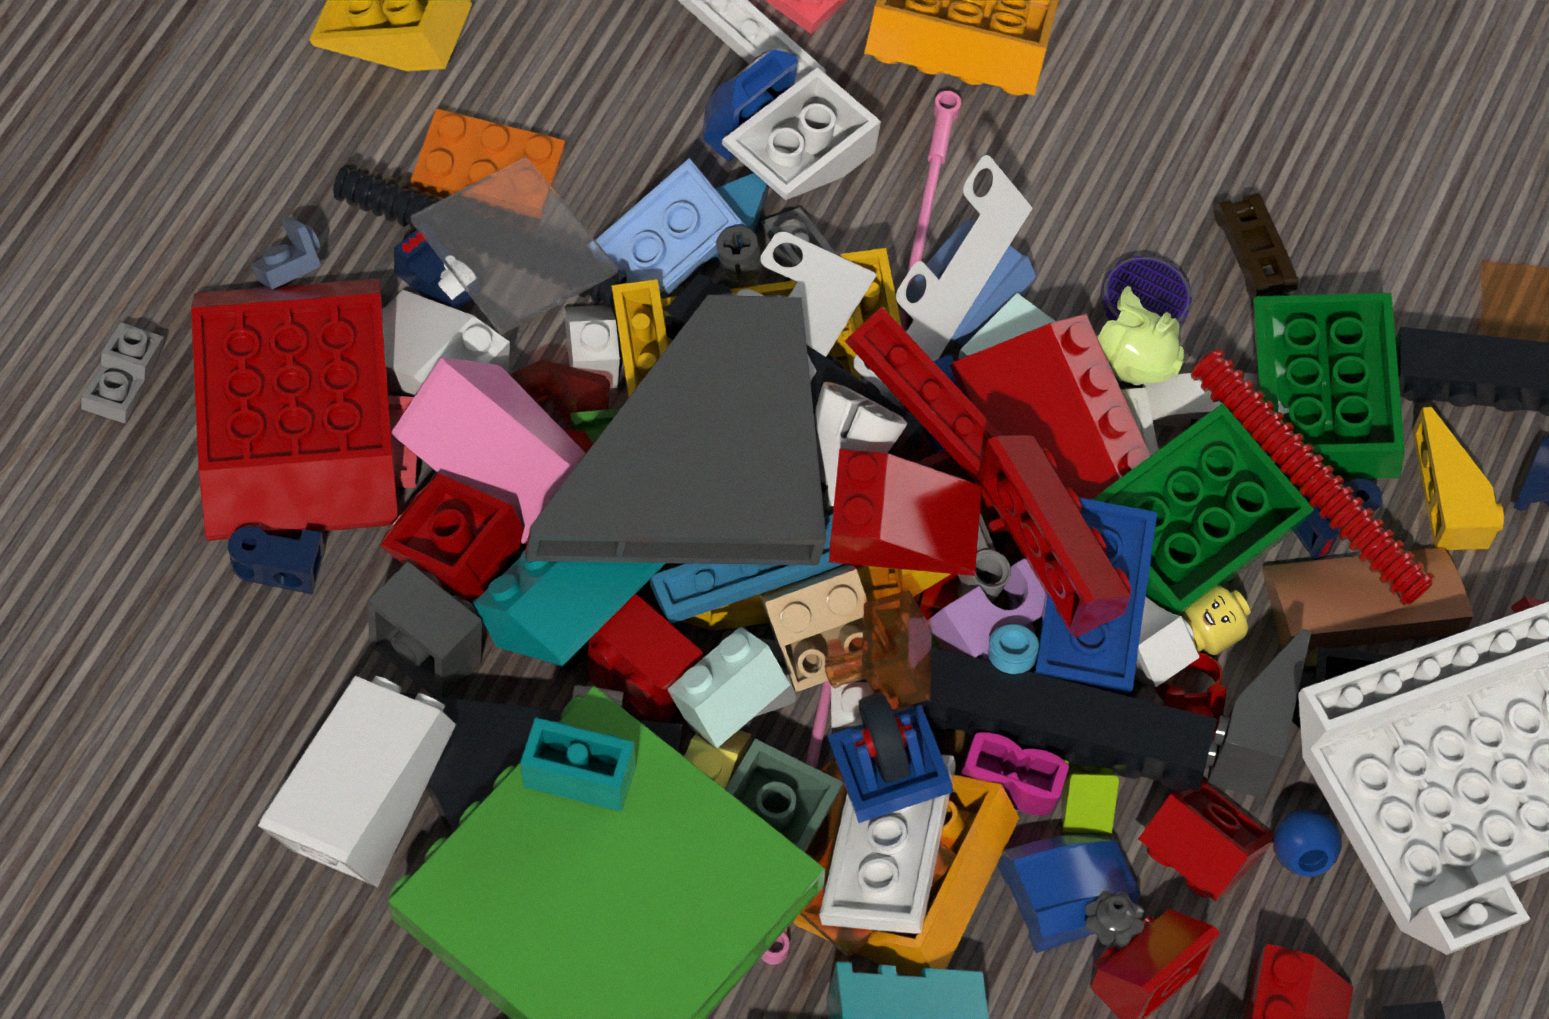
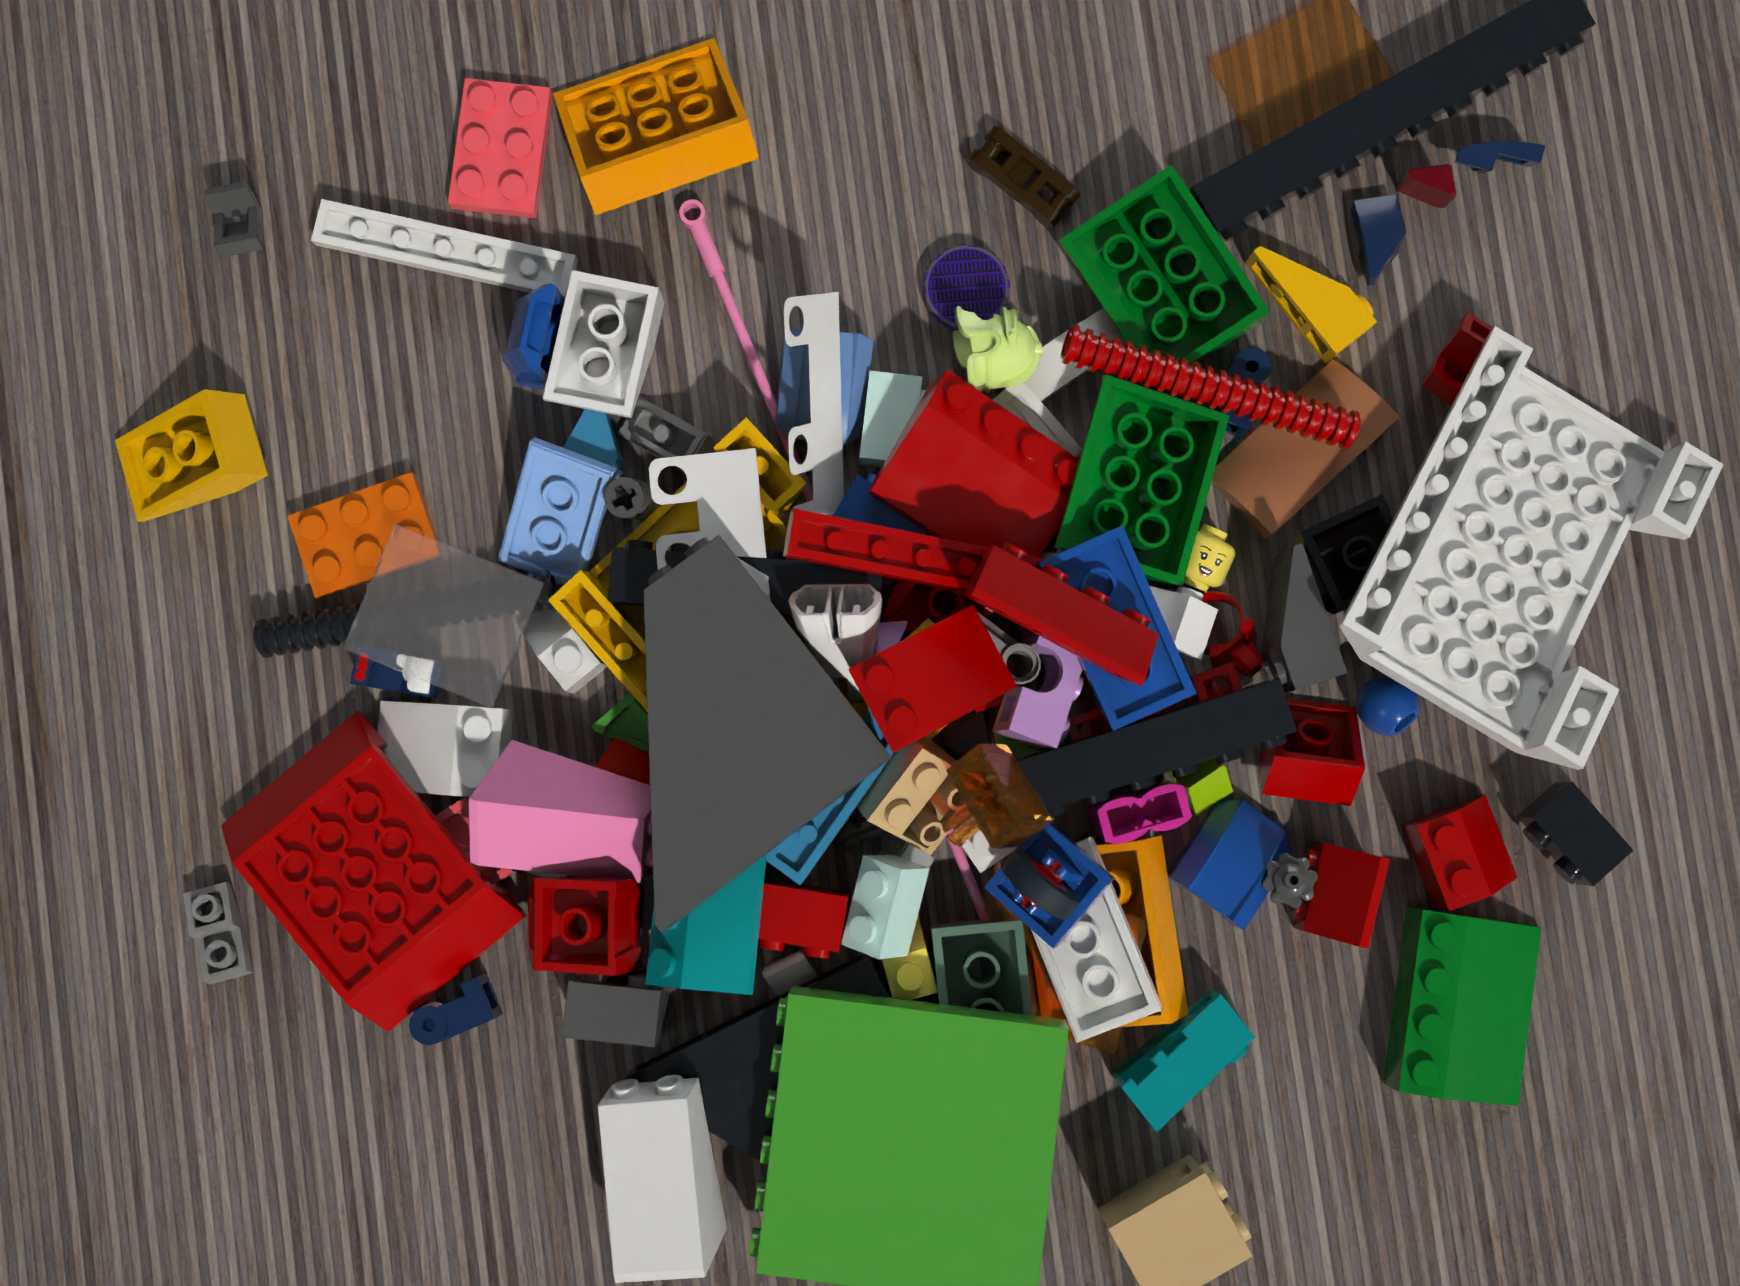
camera: 25 degrees left, 25 degrees up
(287, 262) = (275, 745): sand blue bracket -> none
(566, 386) = (580, 705): clear red slope -> none
(578, 764) = (829, 1088): teal brick -> none
(1013, 648) = (1084, 723): medium azure tile -> none

